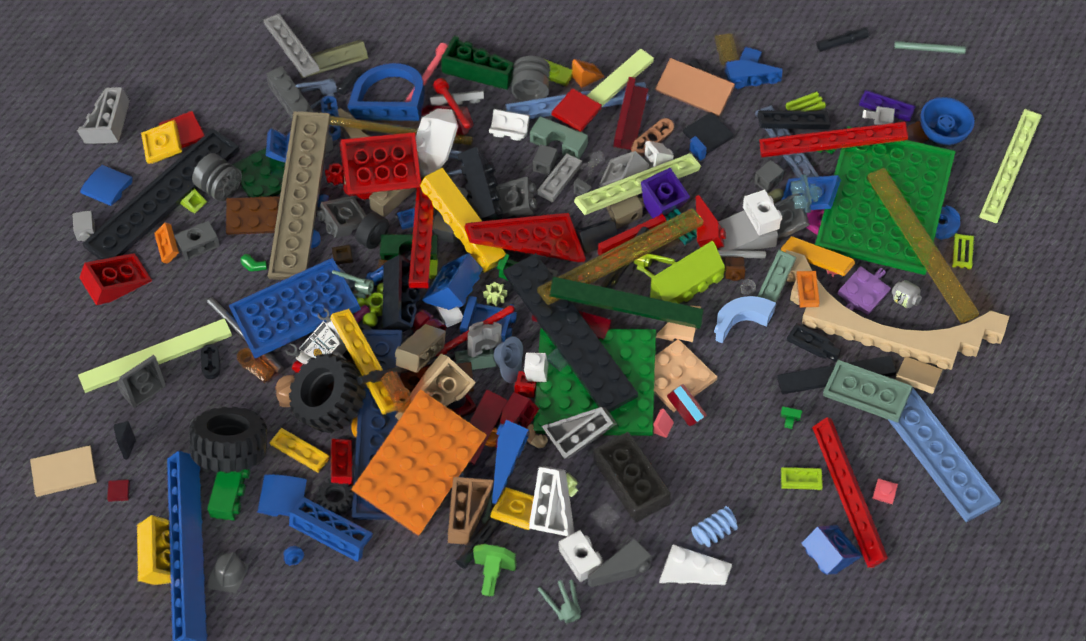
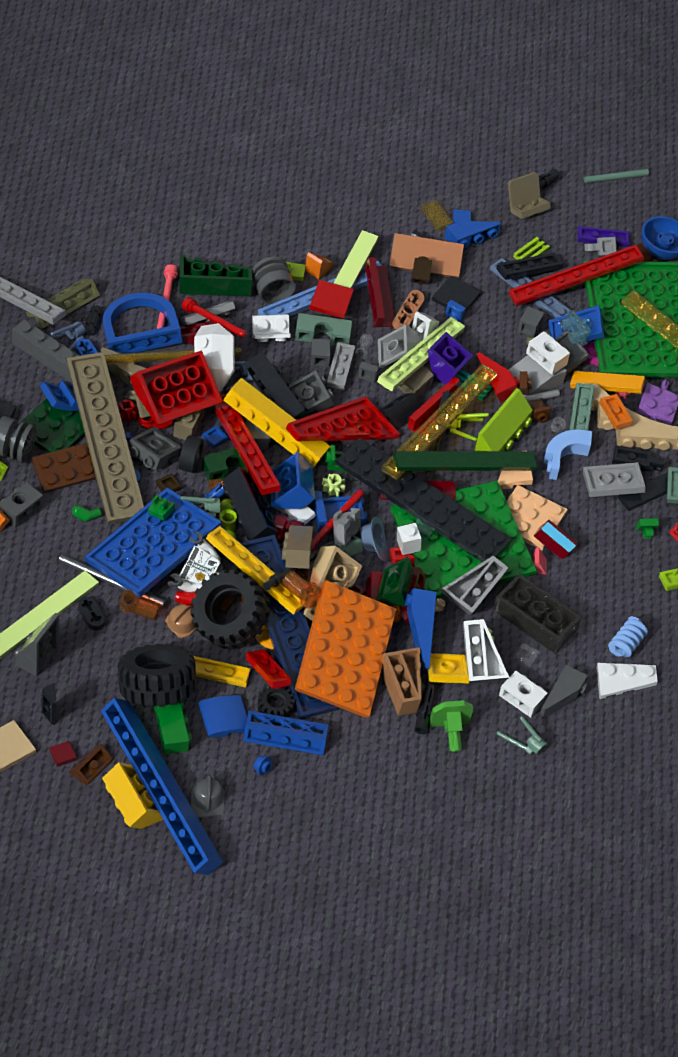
camera: 30 degrees left, 5 degrees down
(139, 508) = (91, 764): none -> reddish brown slope
(314, 276) = (161, 508): none -> green tile
(501, 408) = (396, 583): none -> dark green slope
(682, 100) = (421, 270): none -> dark brown brick
(729, 237) = (525, 383): none -> reddish brown plate
(777, 358) = (613, 479): none -> light grey plate
(822, 48) = (525, 196): none -> dark tan bracket

